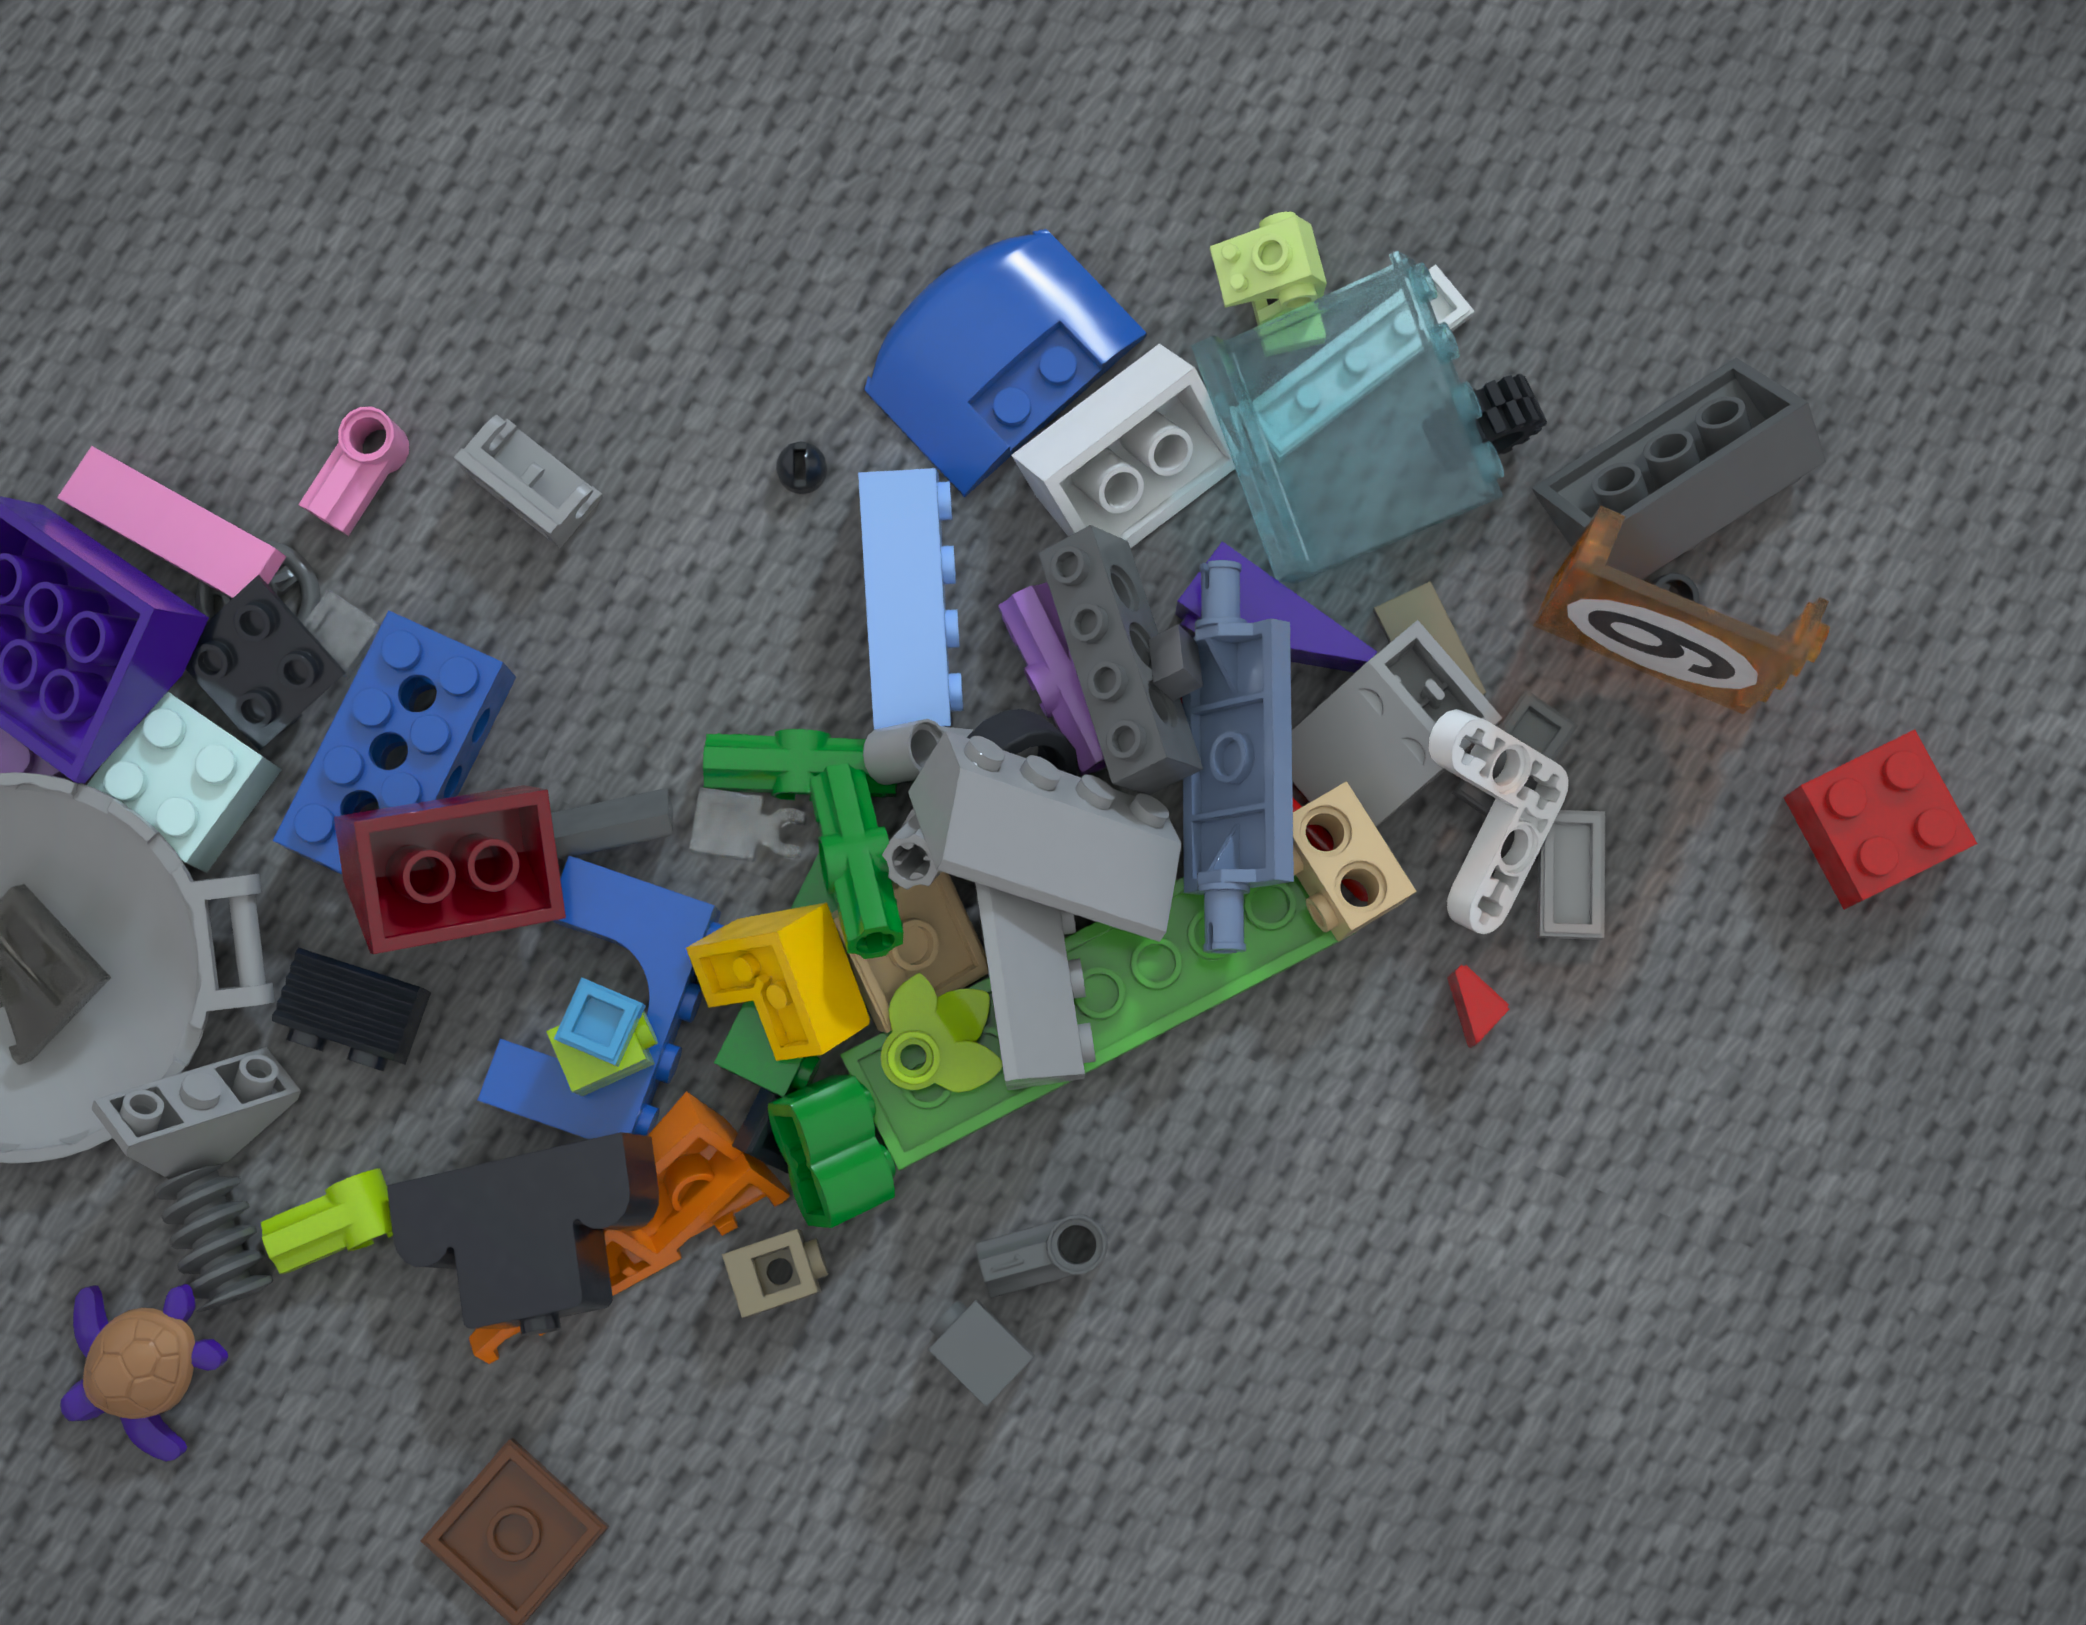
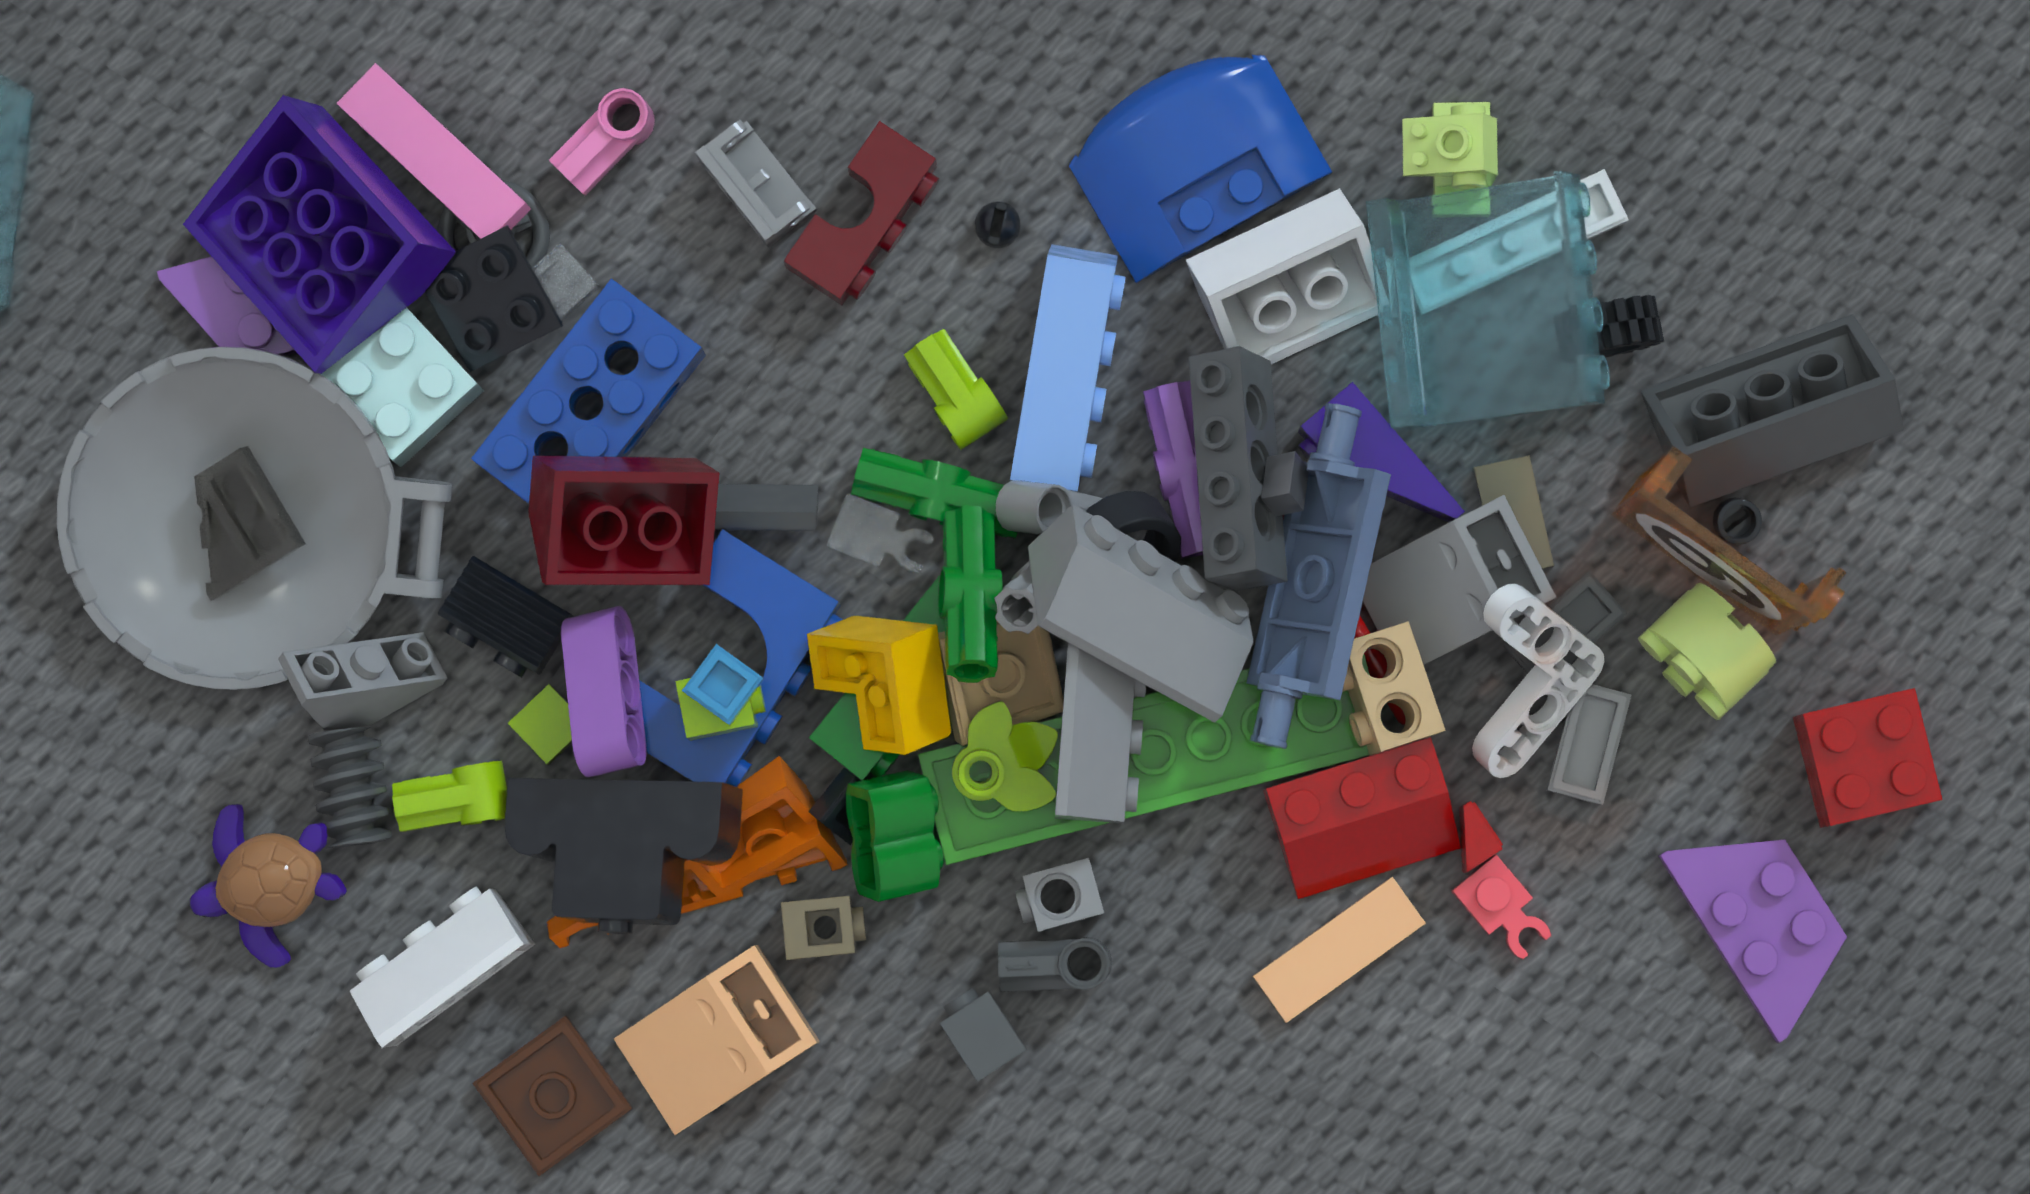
camera: 15 degrees right, 5 degrees up
(353, 1418) = (439, 966): none -> white slope
(424, 1116) = (544, 724): none -> lime tile
(471, 1064) = (603, 691): none -> medium lavender beam
(638, 537) = (840, 258): none -> dark red arch
(684, 1425) = (716, 1039): none -> light nougat slope
(801, 658) = (960, 398): none -> lime piece
(1048, 1149) = (1079, 877): none -> light grey brick
(1346, 1011) = (1363, 818): none -> red slope
(1354, 1164) = (1339, 949): none -> light nougat tile
(1513, 1069) = (1496, 900): none -> coral plate
(1679, 740) = (1708, 650): none -> yellowish green brick
(1810, 1027) = (1762, 921): none -> medium lavender wing

